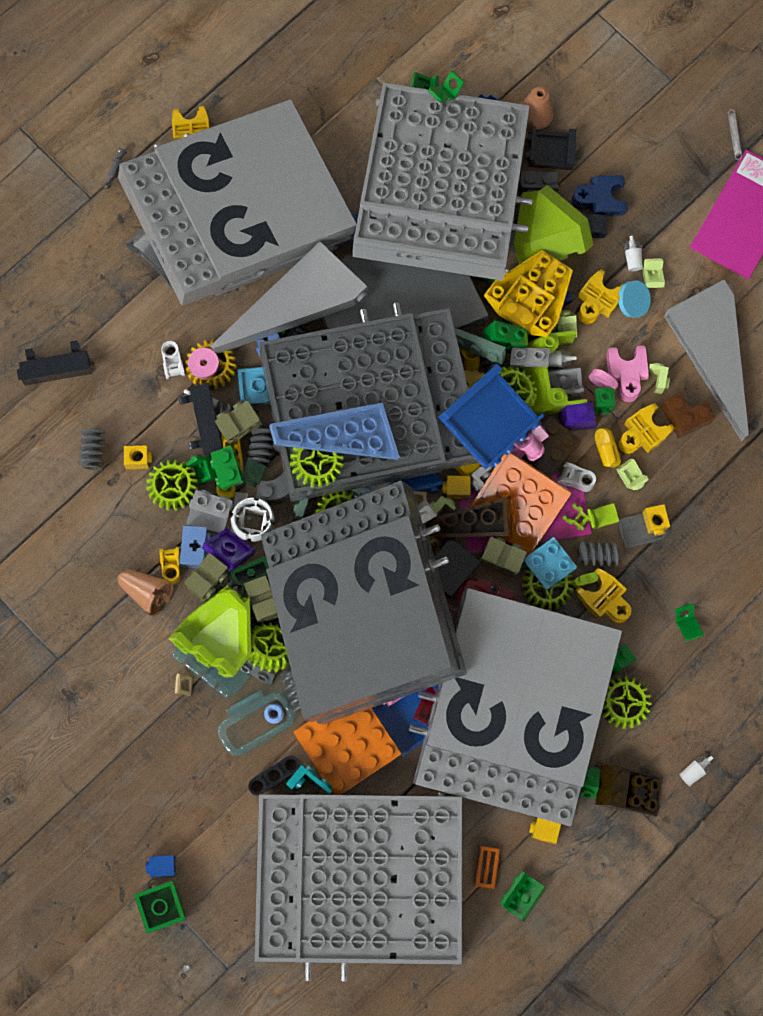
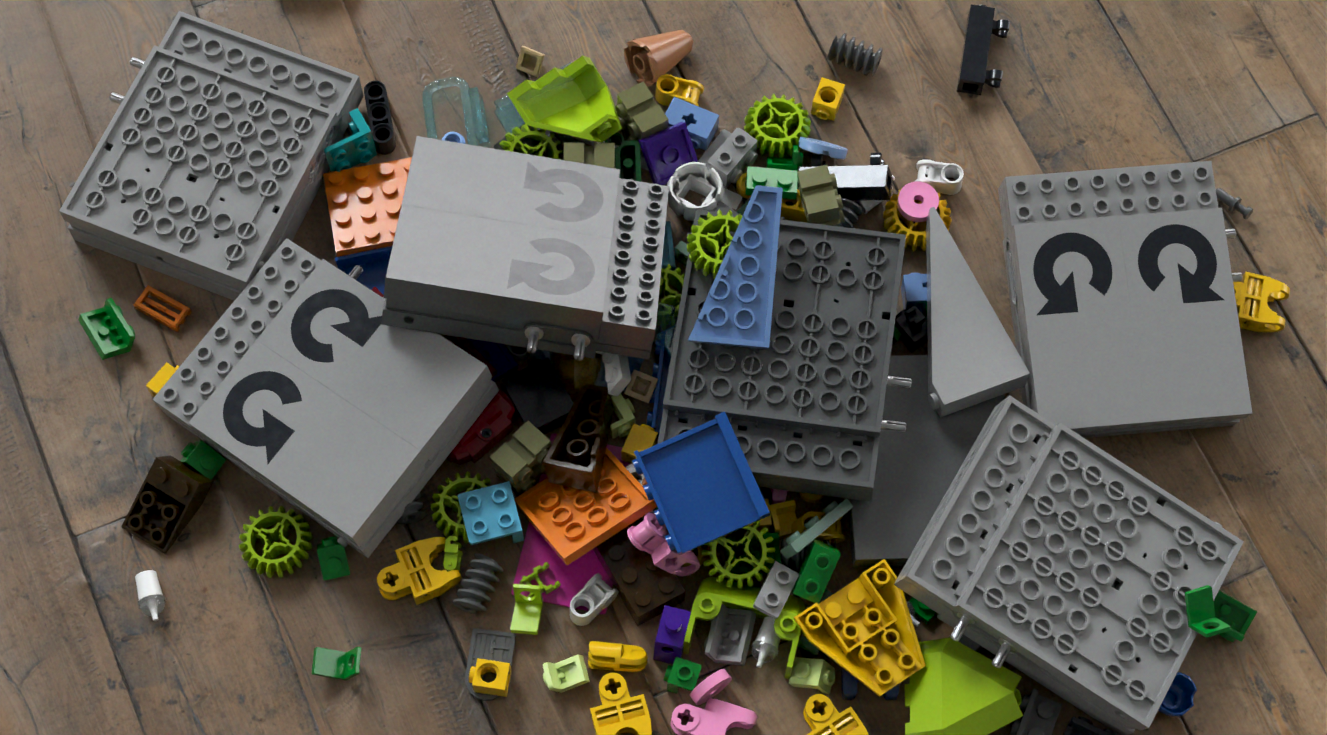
camera: 115 degrees right, 10 degrees down
(181, 444) = (822, 147): none -> light blue tile

